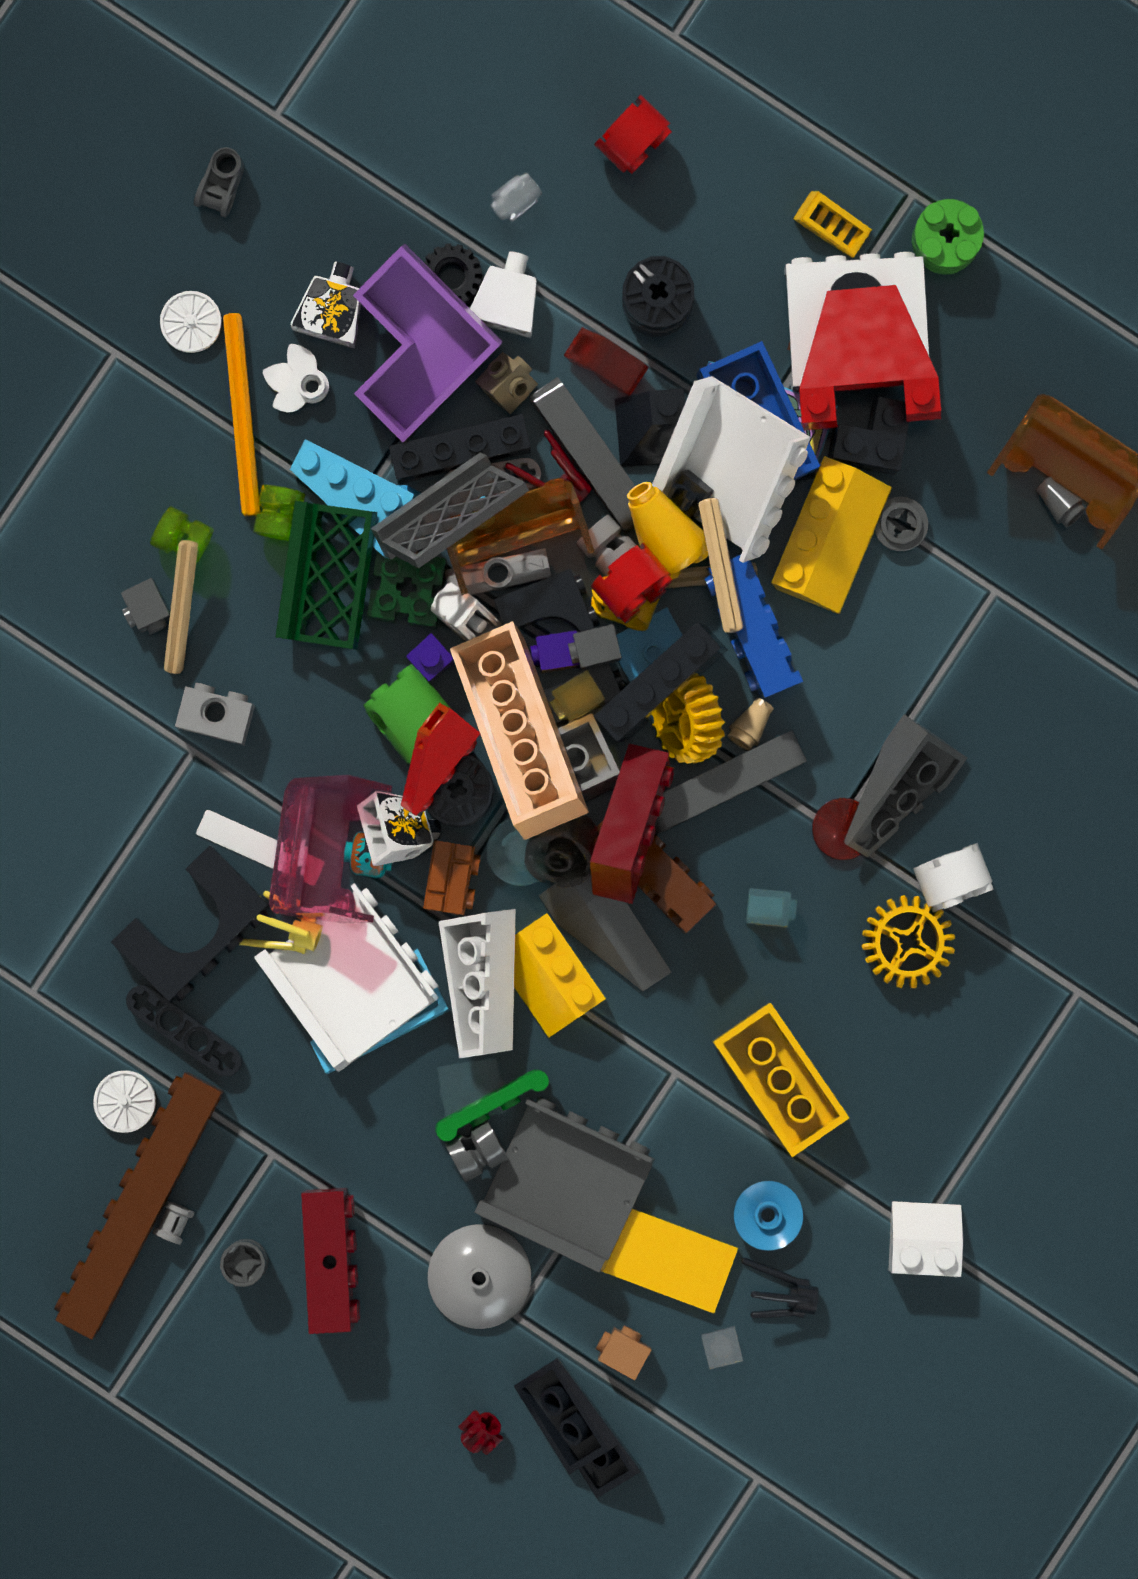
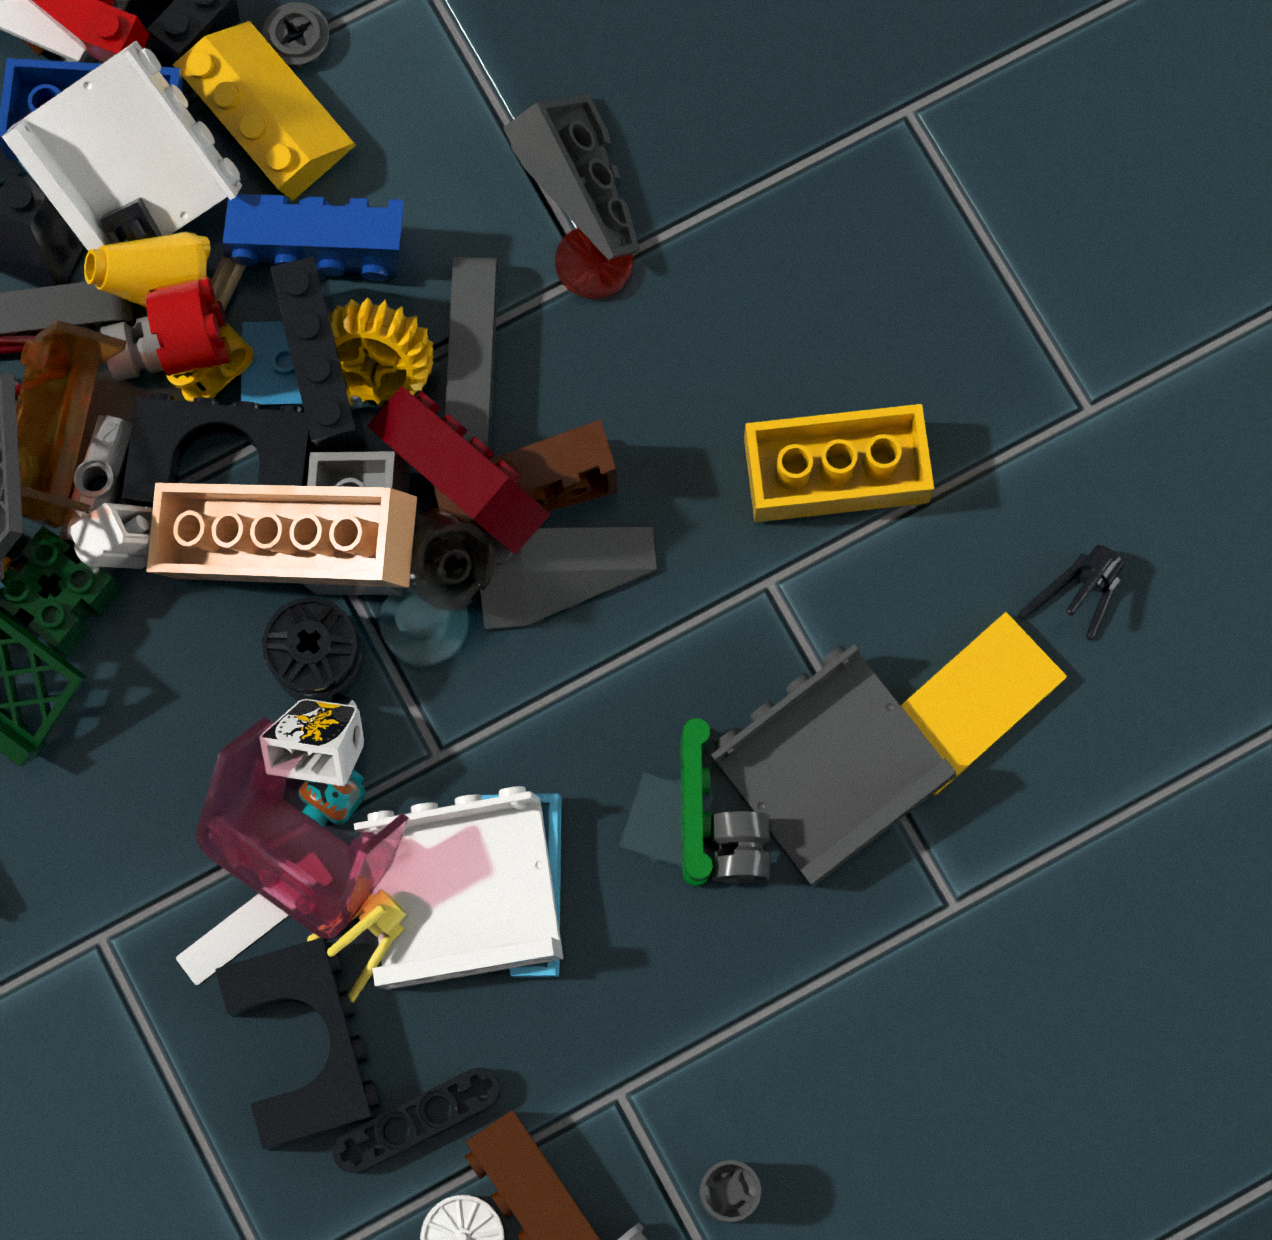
camera: 60 degrees left, 10 degrees down
(233, 726) = (96, 878): light grey brick -> none
(328, 1285) = (812, 1101): dark red brick -> none
(403, 709) = (201, 656): bright green cylinder -> none
(430, 658) = (148, 606): dark purple brick -> none
(437, 750) = (249, 634): red slope -> none
(450, 878) = (410, 714): dark orange brick -> none
(480, 1432) = (1074, 1014): dark red gear -> none
(481, 980) = (543, 736): white wedge -> none
(485, 1251) = (868, 950): light grey dish -> none
(552, 977) = (581, 661): yellow slope -> none
(553, 652) = (223, 458): dark purple brick -> none
(576, 697) = (282, 454): clear yellow brick -> none
(576, 1428) = (1123, 899): black slope -> none
(595, 647) = (238, 408): dark grey brick -> none
(623, 1351) = (1060, 799): medium nougat brick -> none
(720, 565) = (225, 224): tan axle -> none
(722, 1347) = (1111, 687): clear plate -> none
(749, 726) = (424, 298): tan cone -> none
(770, 907) = (637, 380): clear light blue brick -> none
(786, 1220) = (989, 537): dark azure dish -> none
(922, 916) = (782, 232): yellow gear -> none
(926, 1239) = (1101, 400): white slope -> none
(954, 878) = (712, 163): white brick -> none

